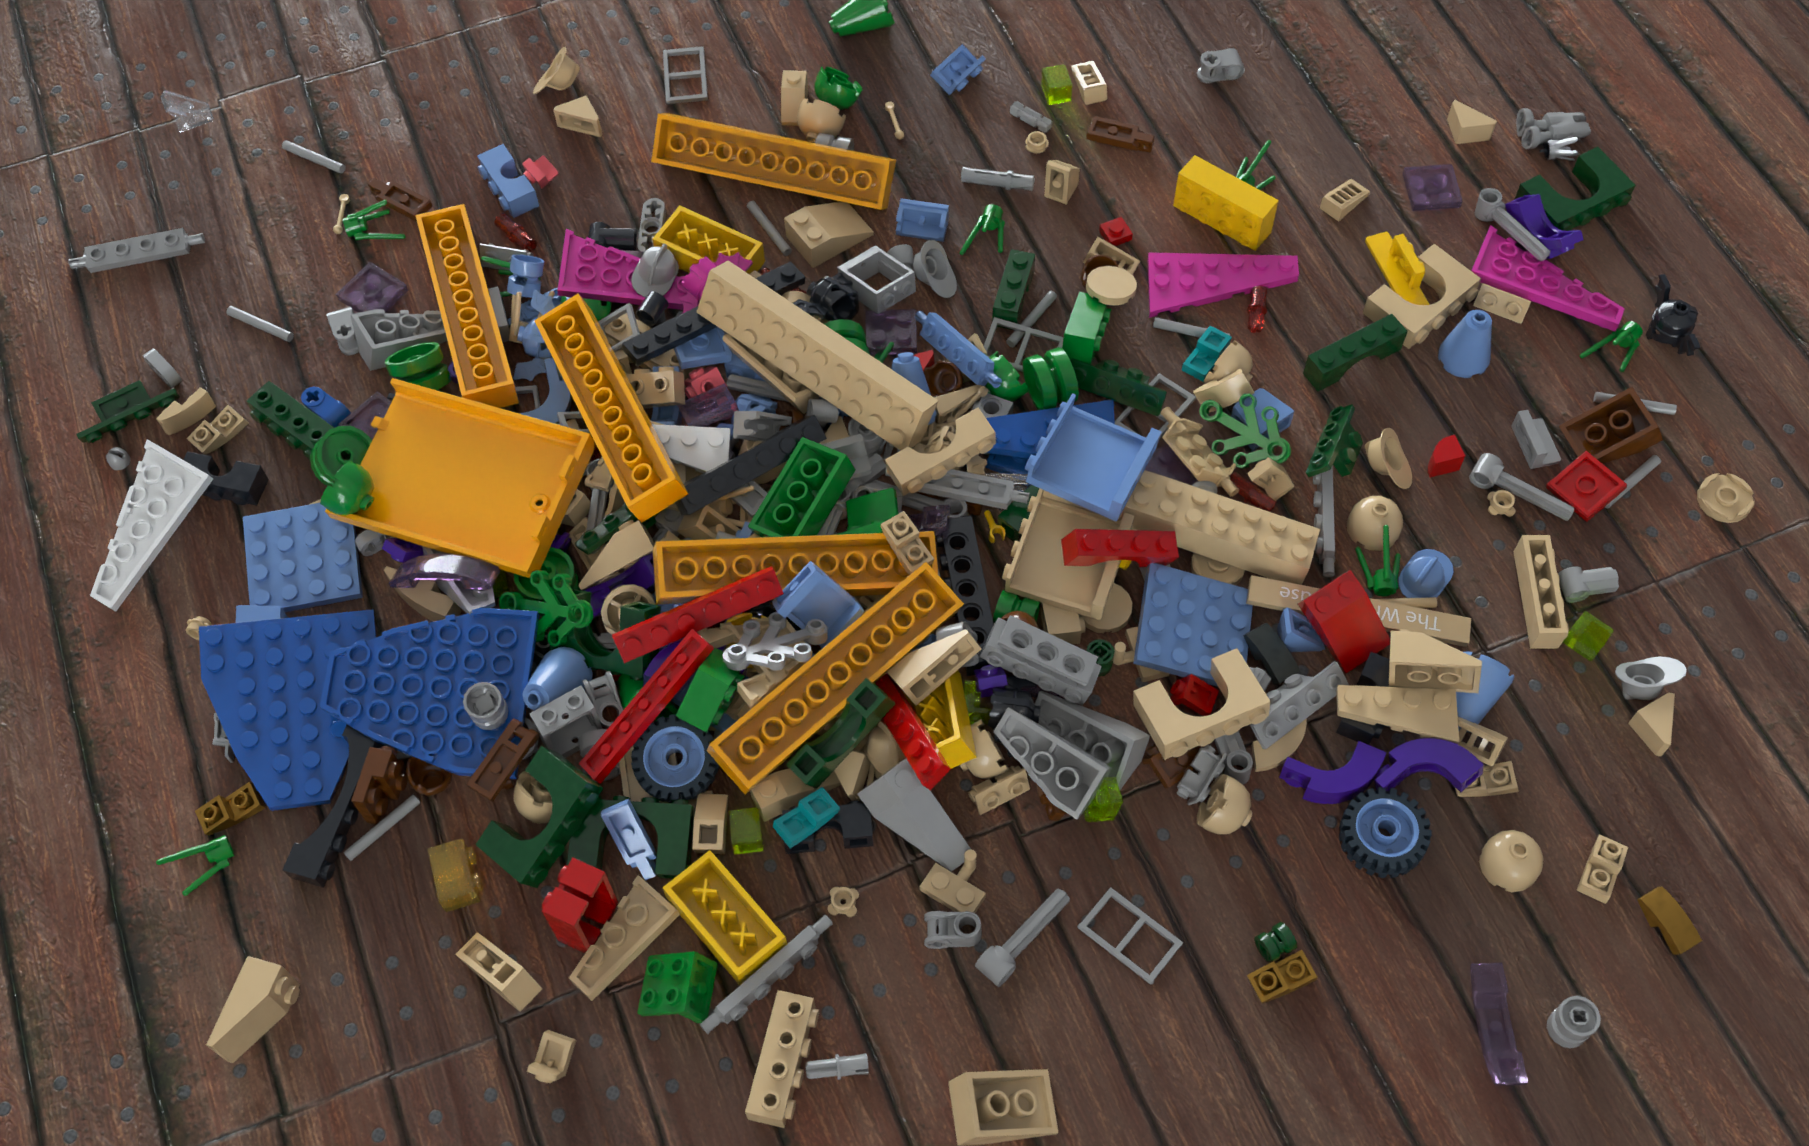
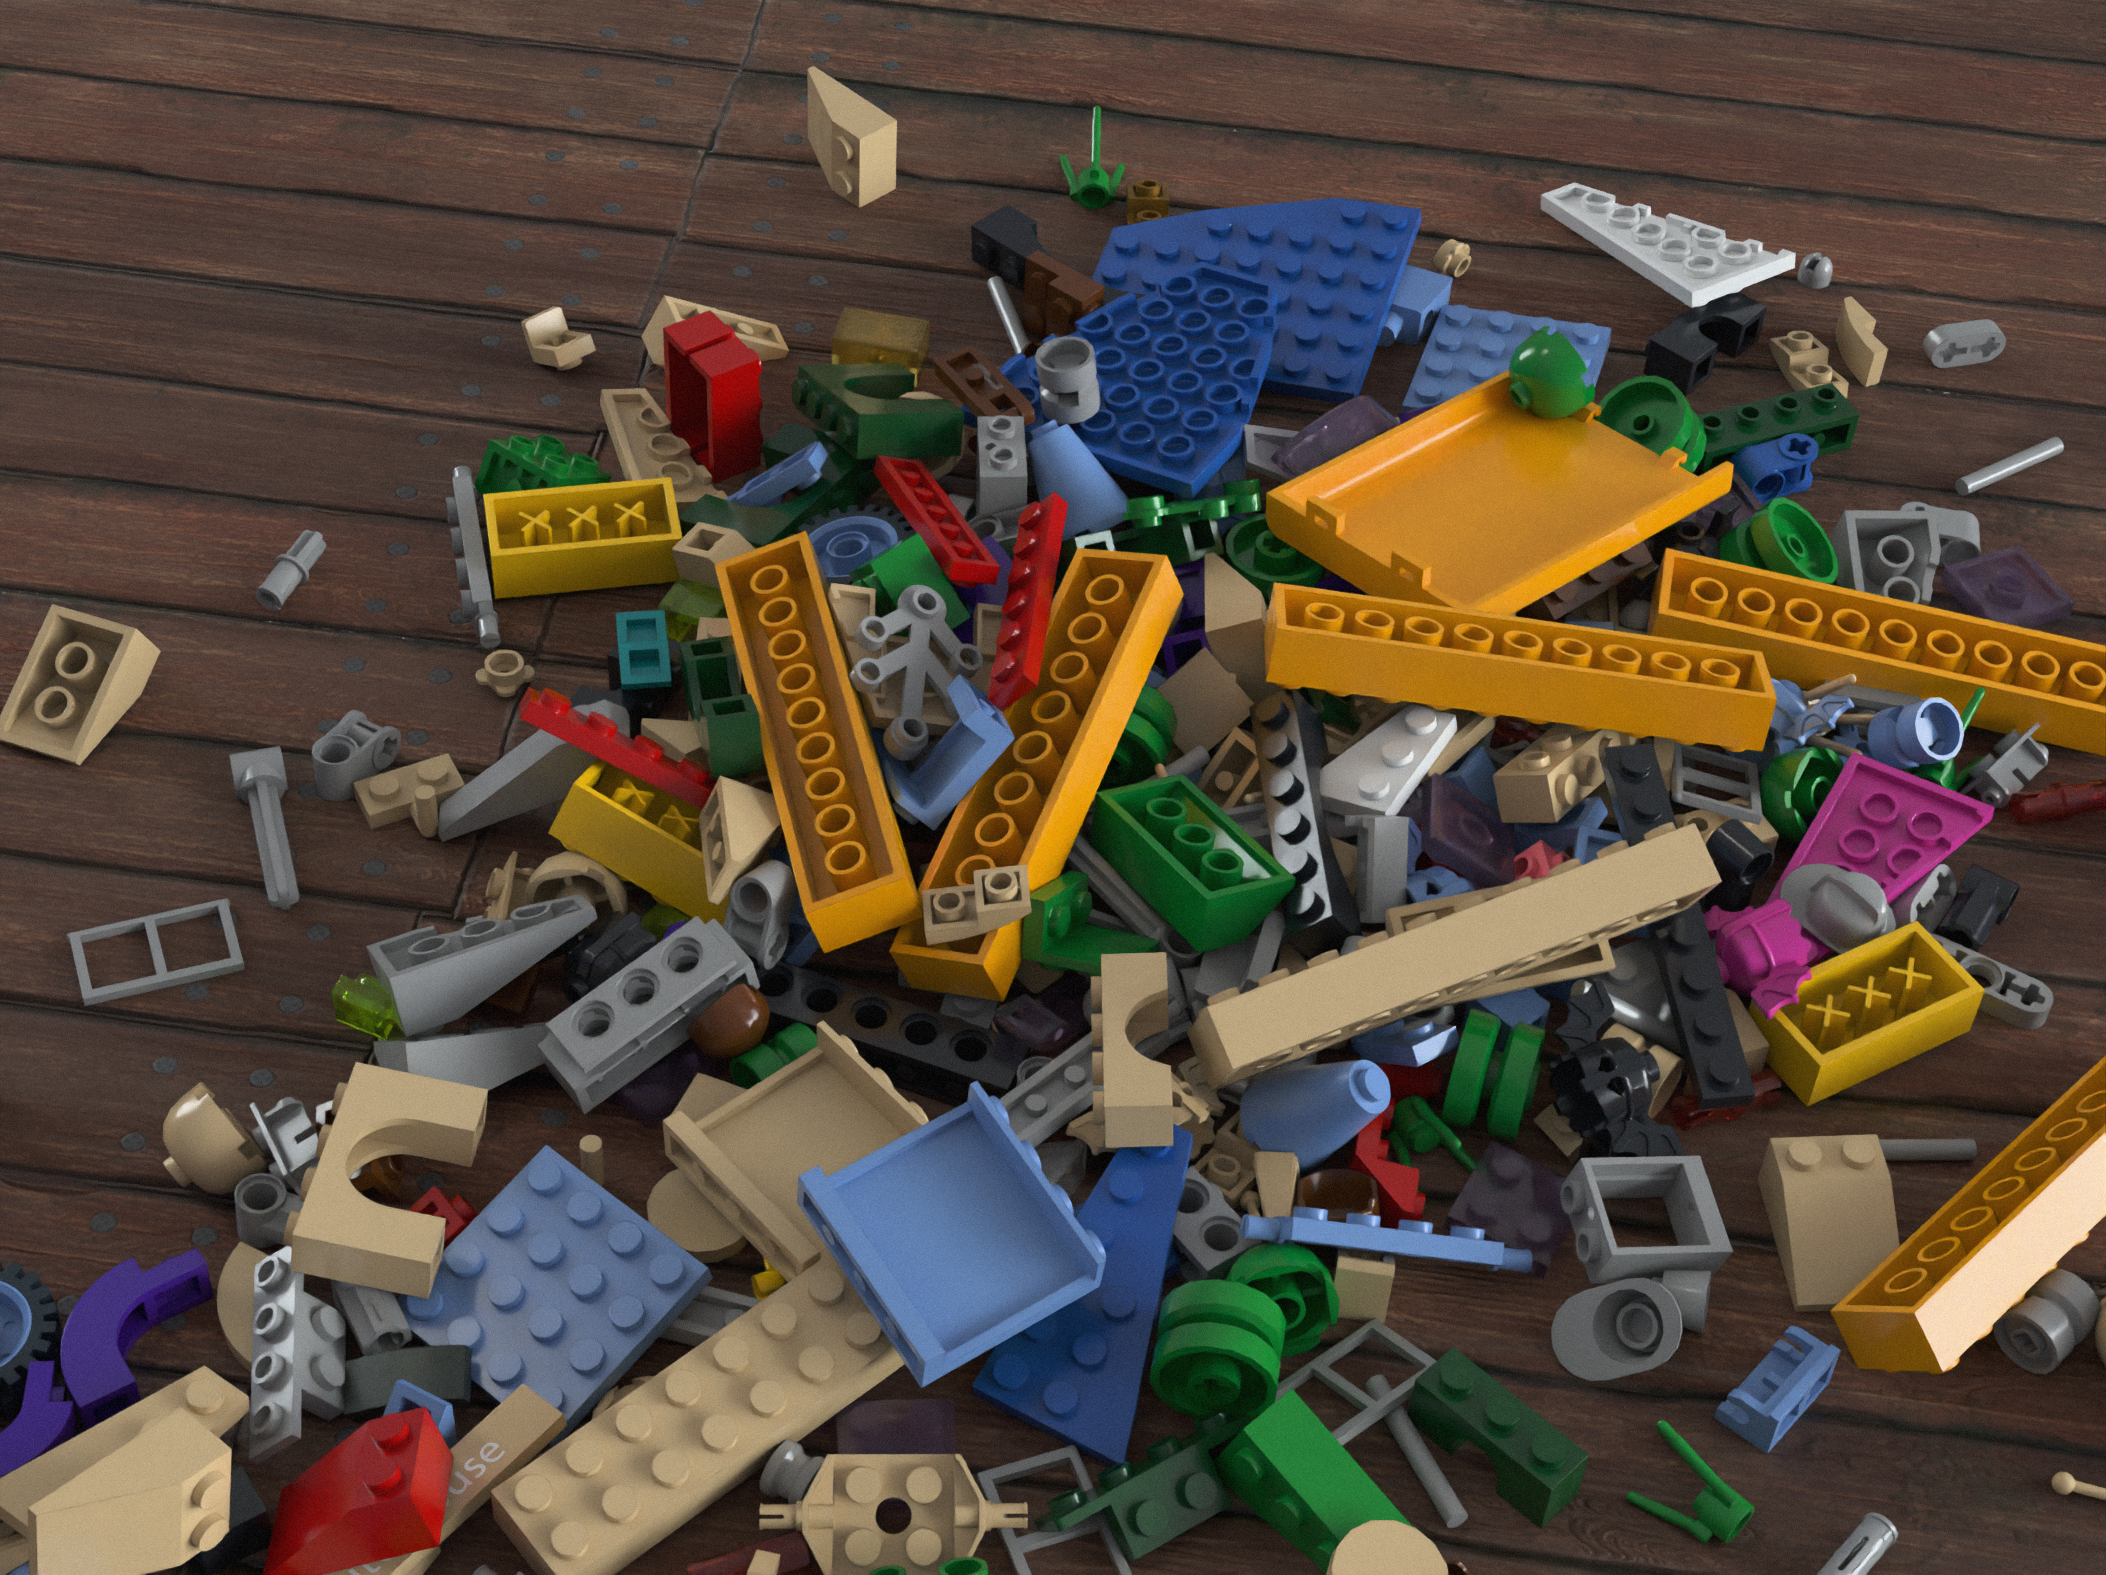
camera: 115 degrees right, 15 degrees down
(124, 406) = (1907, 291): dark green bracket -> none
(781, 1059) = (355, 522): tan brick -> none
(1096, 546) = (729, 1256): red arch -> none
(1102, 647) = (618, 1129): dark green wheel -> none

